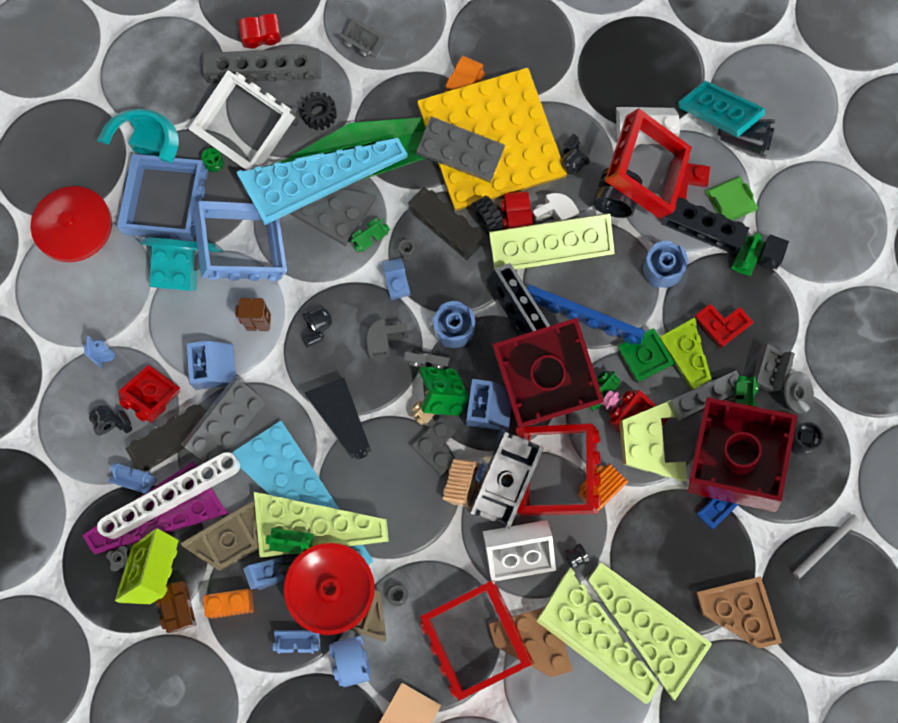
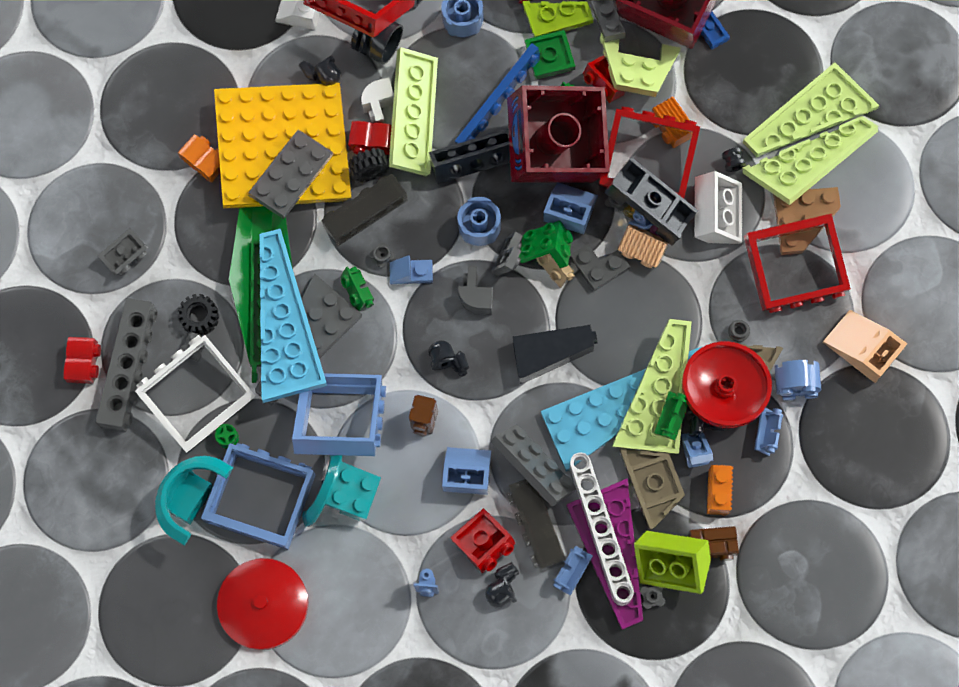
camera: 75 degrees left, 0 degrees up
(742, 611) = (809, 31): medium nougat plate -> none

